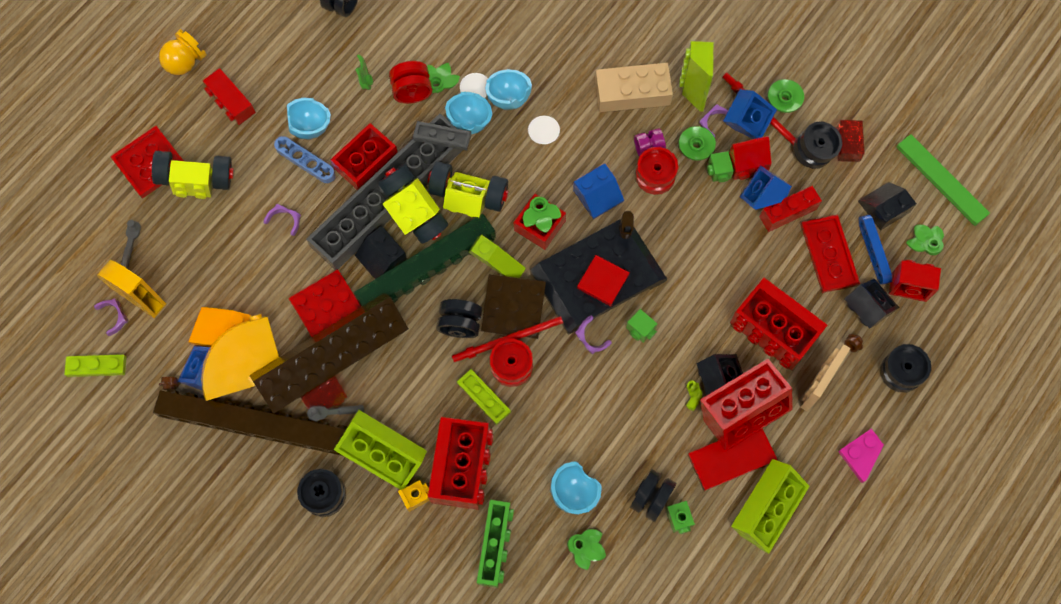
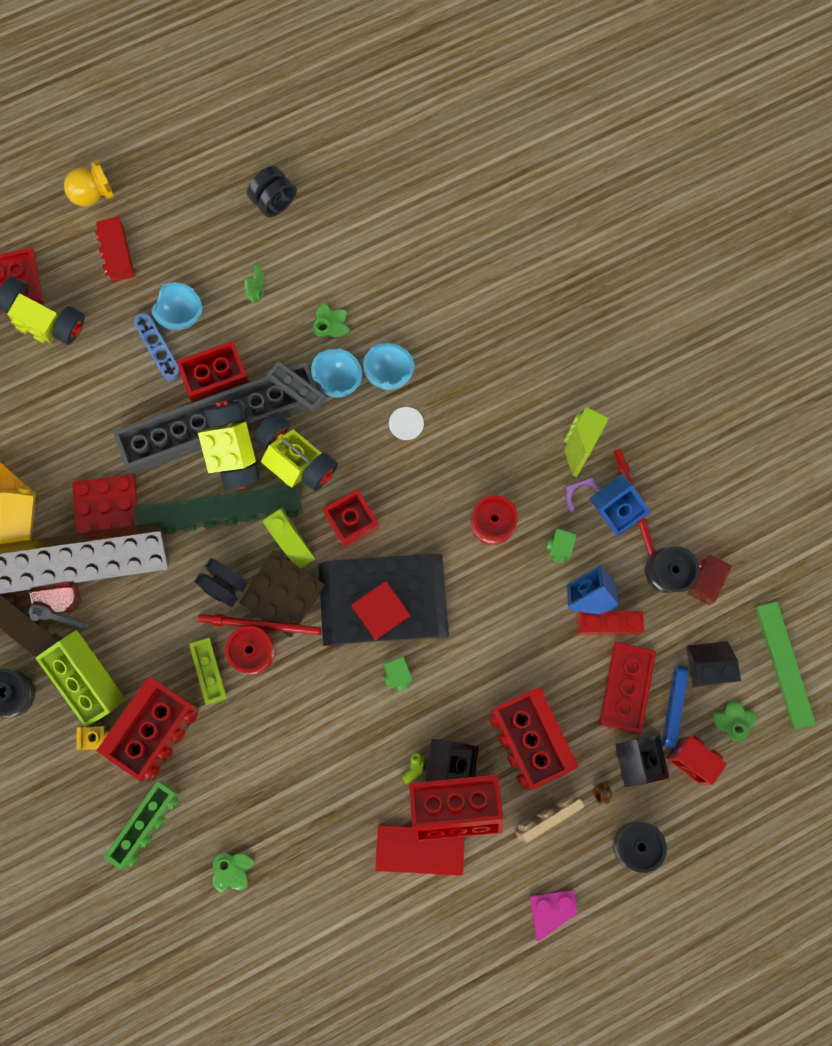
camera: 20 degrees right, 5 degrees up
(279, 209) = (119, 400): medium lavender cap -> none
(380, 253) = (181, 478): black slope -> none
(410, 82) = (294, 315): red wheel -> none
(474, 83) = (359, 344): white sticker -> none
(541, 217) = (351, 517): bright green plate -> none
(574, 490) = (245, 810): medium azure cylinder -> none
(580, 334) = (338, 673): medium lavender cap -> none
(598, 191) = (426, 514): blue slope -> none
(626, 224) = (430, 565): dark brown piece -> none
(633, 87) = (516, 421): tan brick -> none
(652, 139) = (503, 486): magenta wheel -> none
(653, 495) = (319, 855): black wheel -> none
(680, 517) = (335, 887): bright green brick -> none
(699, 136) = (550, 500): bright green dish -> none
(749, 156) = (593, 550): red slope -> none
(770, 505) = (430, 919): lime slope -> none
(789, 90) = (674, 495): bright green dish -> none

